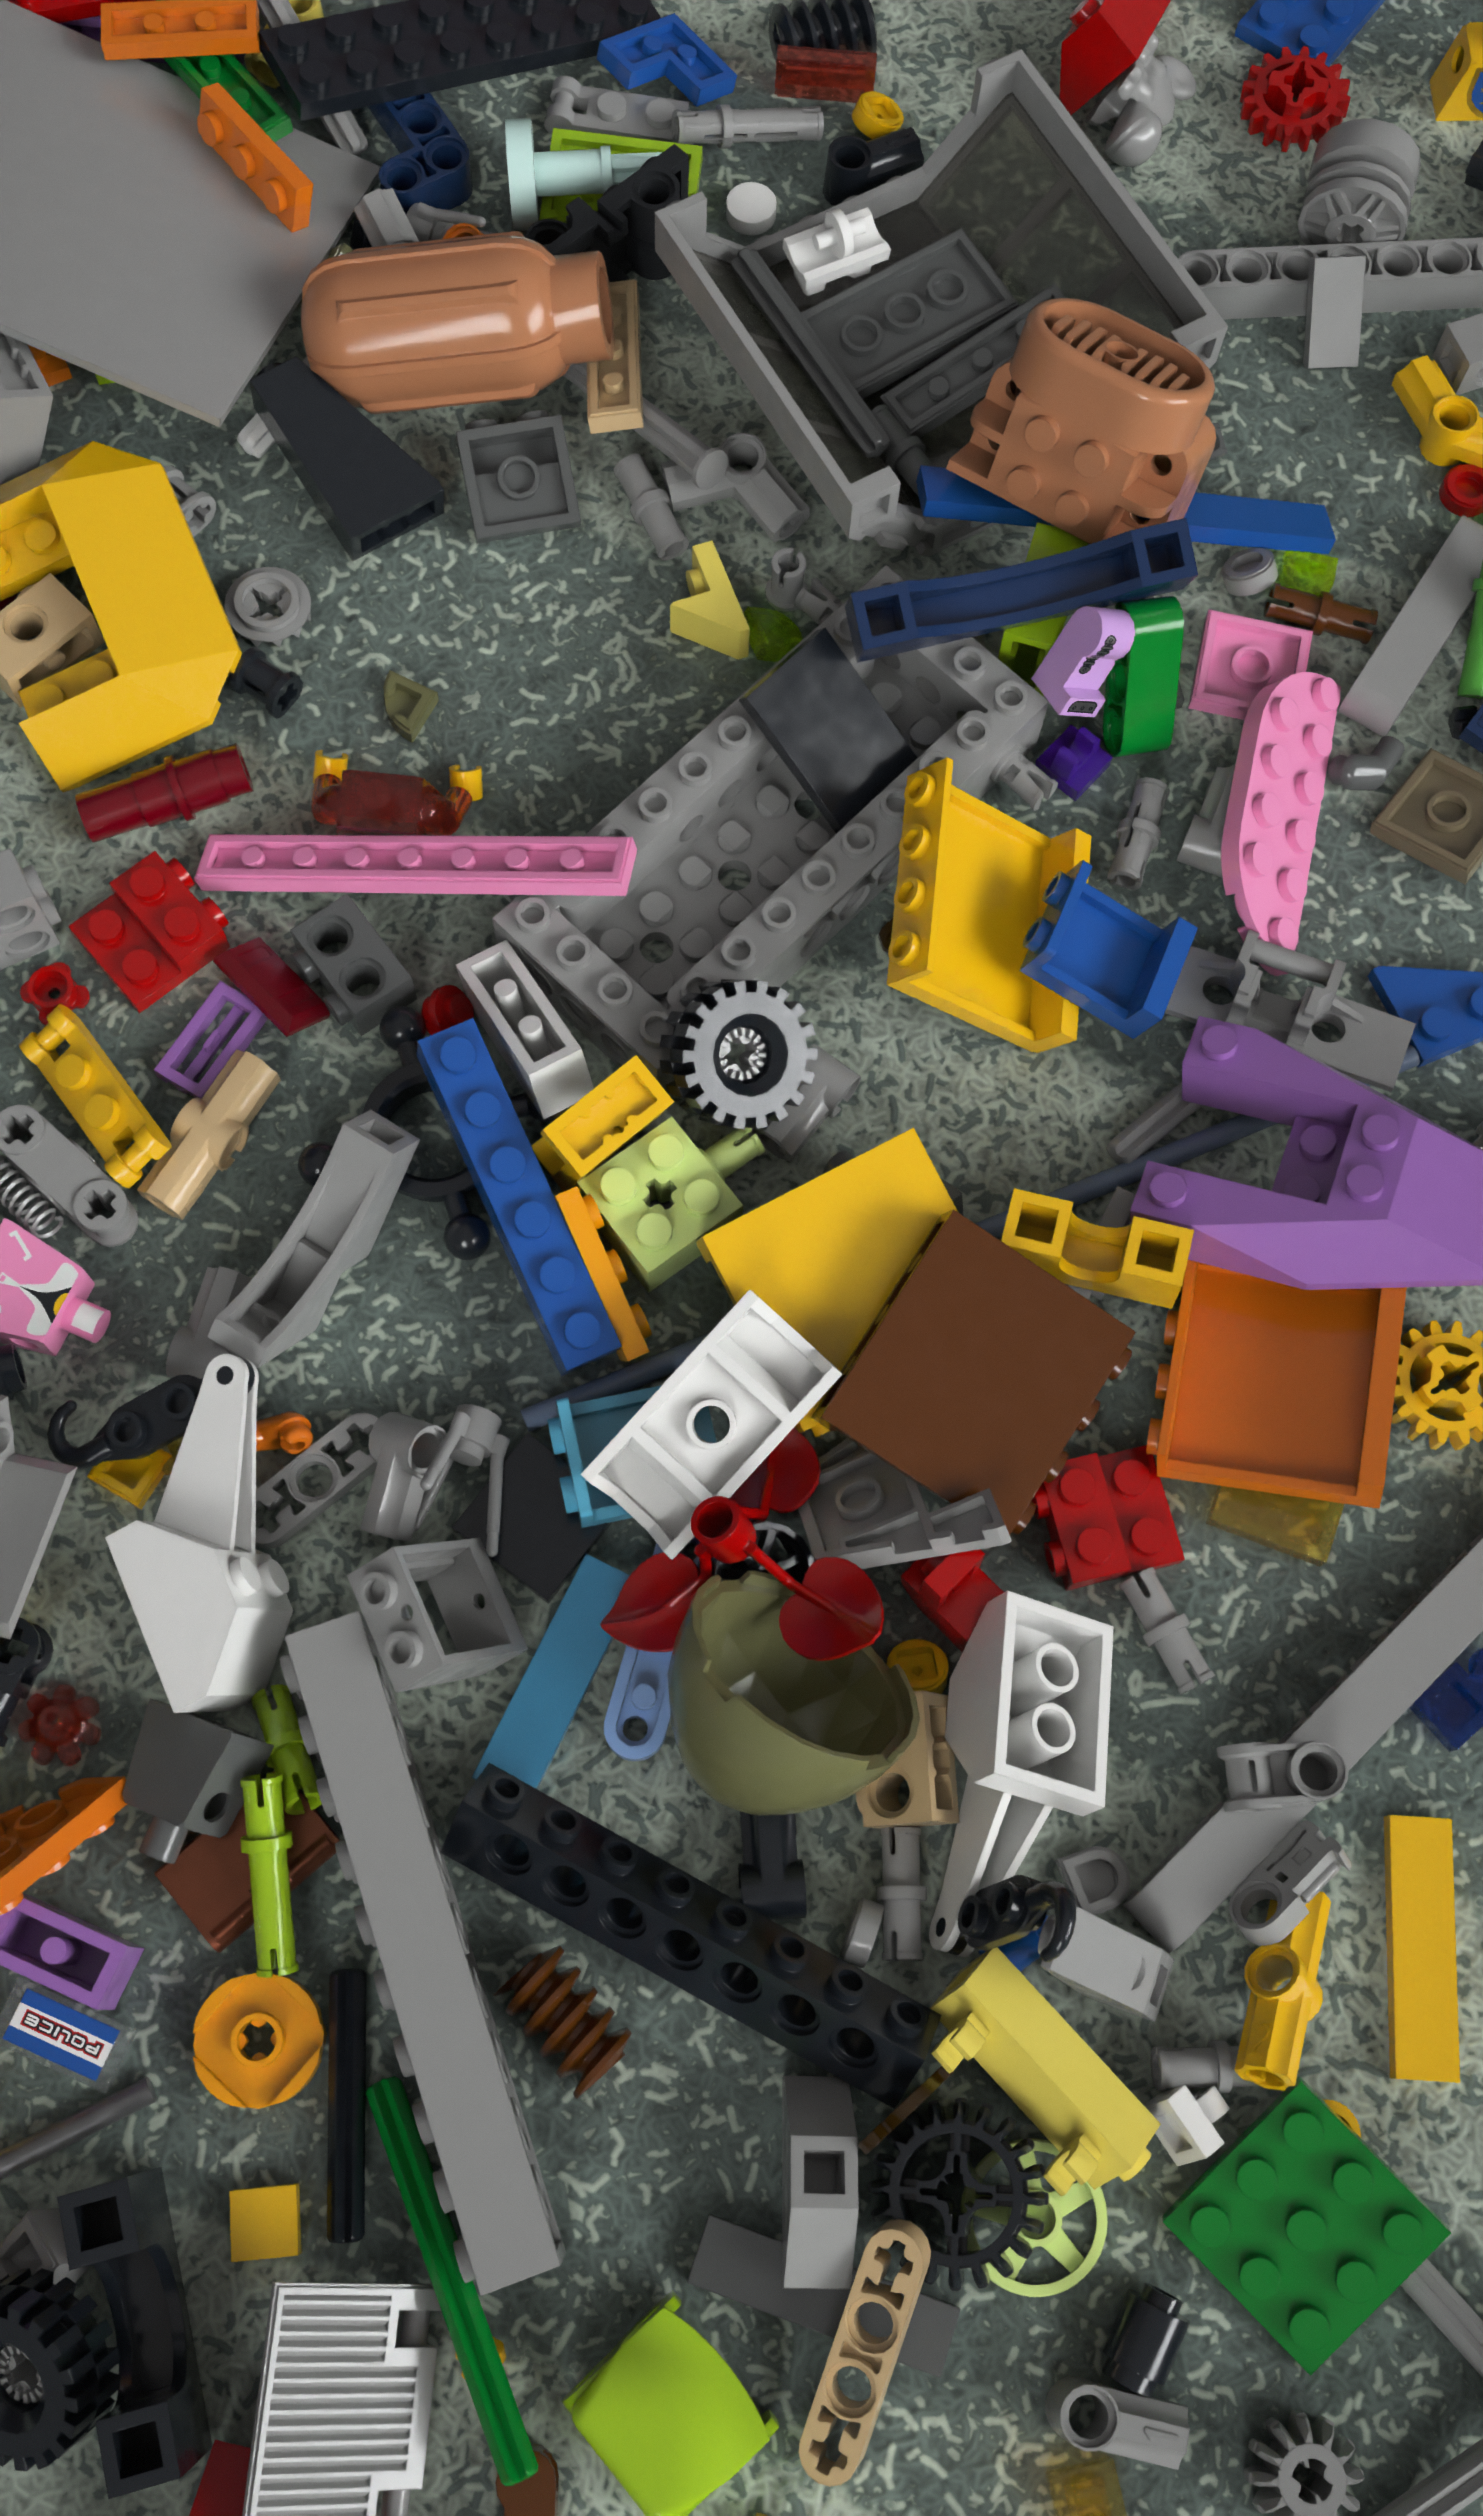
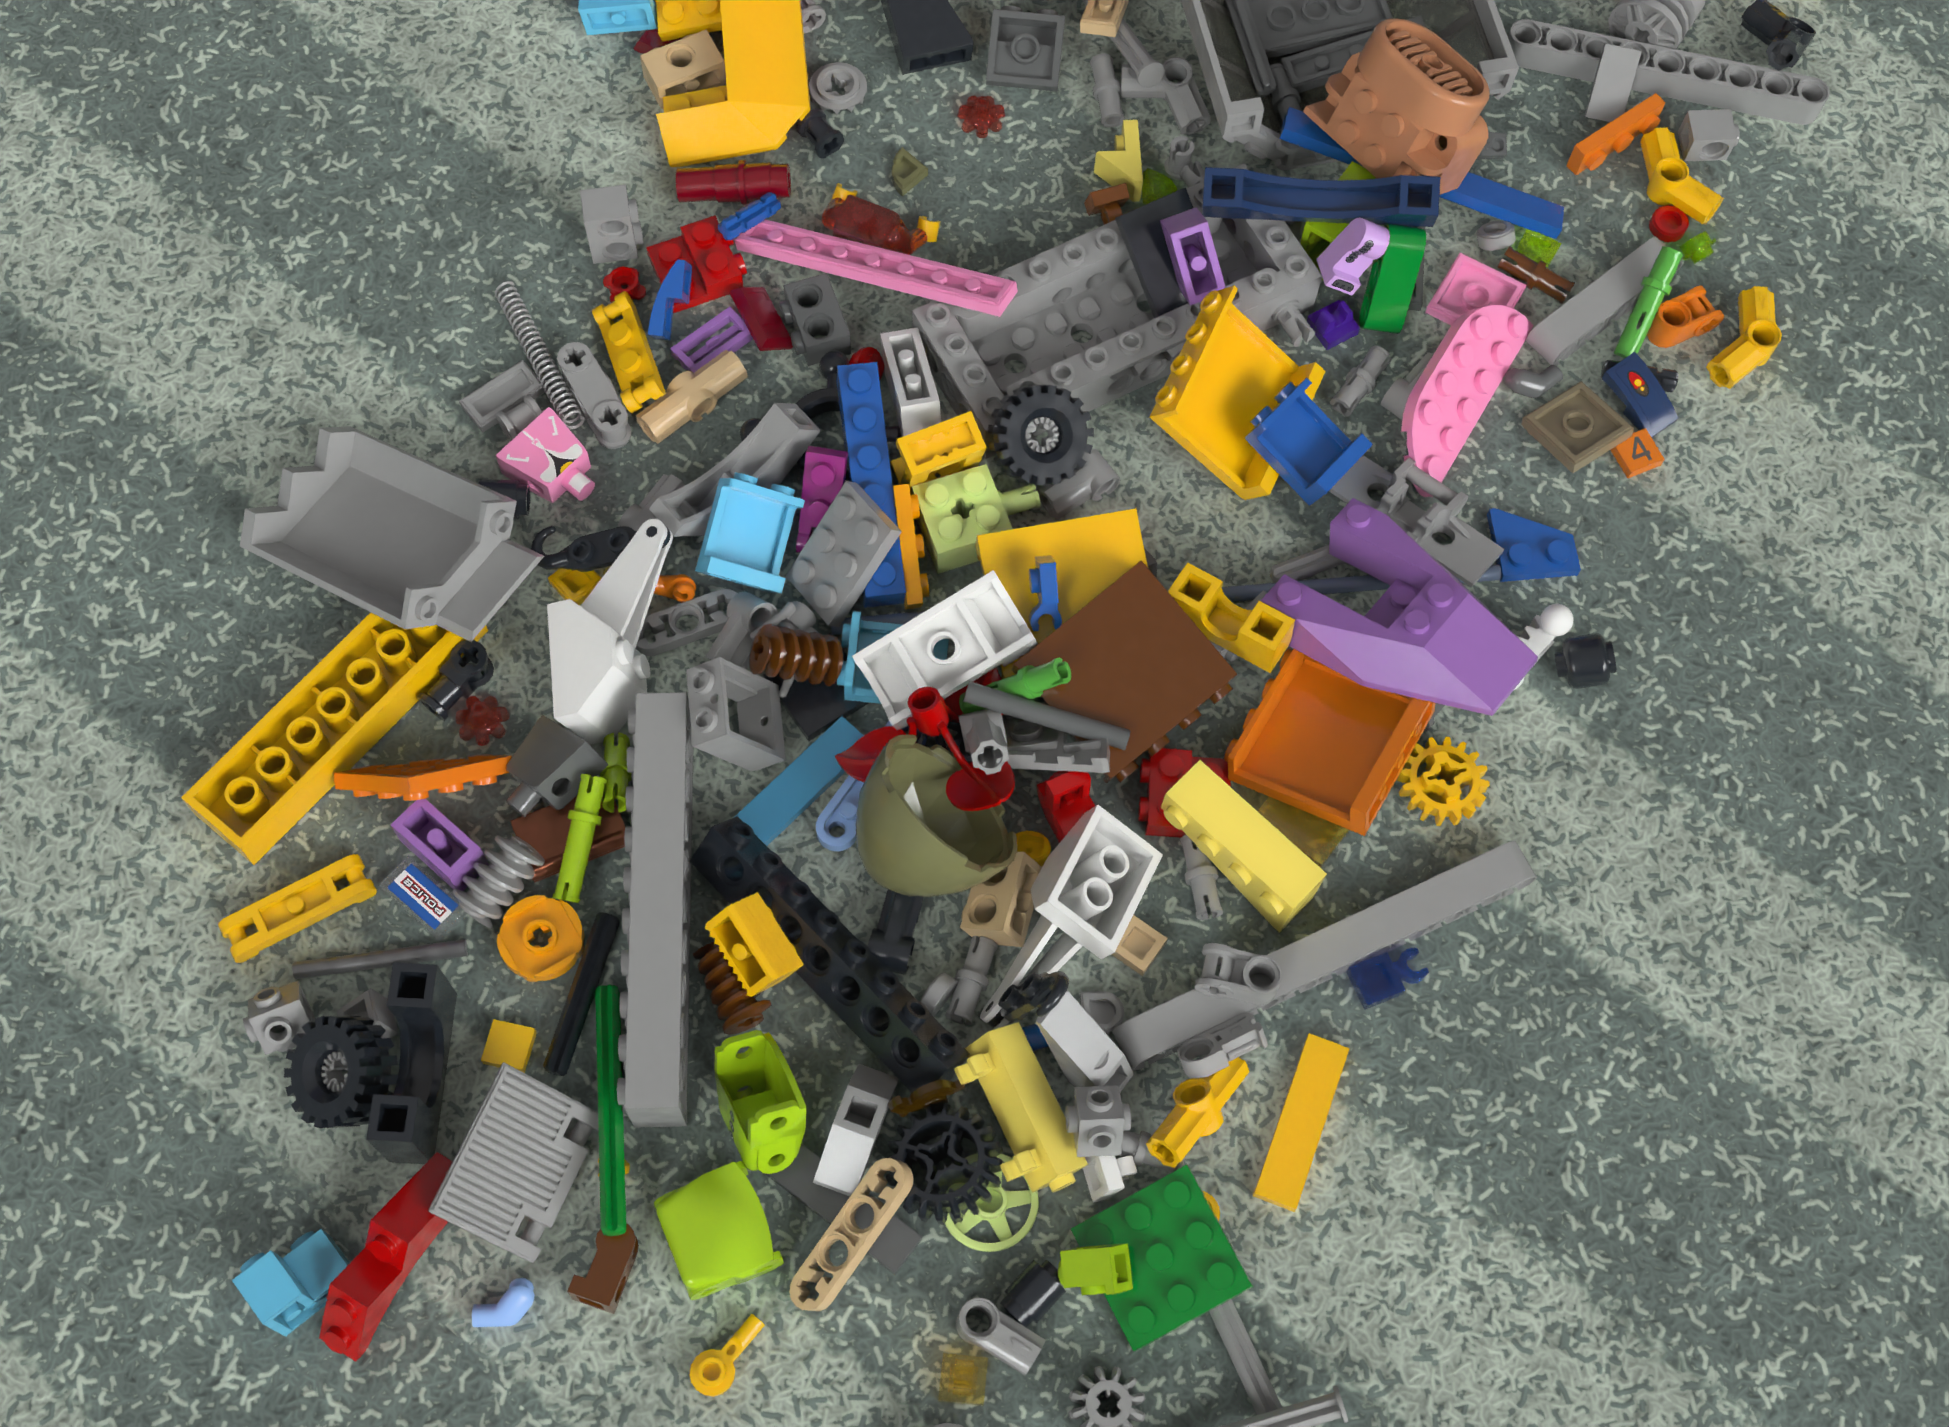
camera: 20 degrees right, 5 degrees down
(132, 980) = (673, 290): none -> blue slope
(170, 1980) = (498, 879): none -> light grey piece
(205, 839) = (749, 216): none -> blue axle
(363, 1327) = (748, 533): none -> medium azure panel
(454, 1241) = (821, 483): none -> magenta plate
(485, 592) = (981, 115): none -> clear red plant
(496, 1494) = (796, 654): none -> reddish brown piece
(513, 1316) = (843, 553): none -> light grey plate
(583, 1963) = (754, 944): none -> yellow brick
(671, 2203) = (770, 1114): none -> lime piece
(709, 675) = (1107, 202): none -> dark orange tile
(815, 1541) = (985, 739): none -> light grey piece
(825, 1282) = (1044, 583): none -> blue plate
(851, 1443) = (1028, 682): none -> bright green pin
(870, 726) = (1193, 255): none -> medium lavender brick
(891, 1481) = (1046, 715): none -> dark grey piece
(1126, 1765) = (1139, 945): none -> tan plate
(1161, 2063) = (1098, 1120): none -> light grey brick
(1222, 1578) = (1243, 845): none -> light yellow wedge
(1228, 2284) = (1096, 1269): none -> lime brick
(1361, 384) = (1616, 135): none -> orange plate

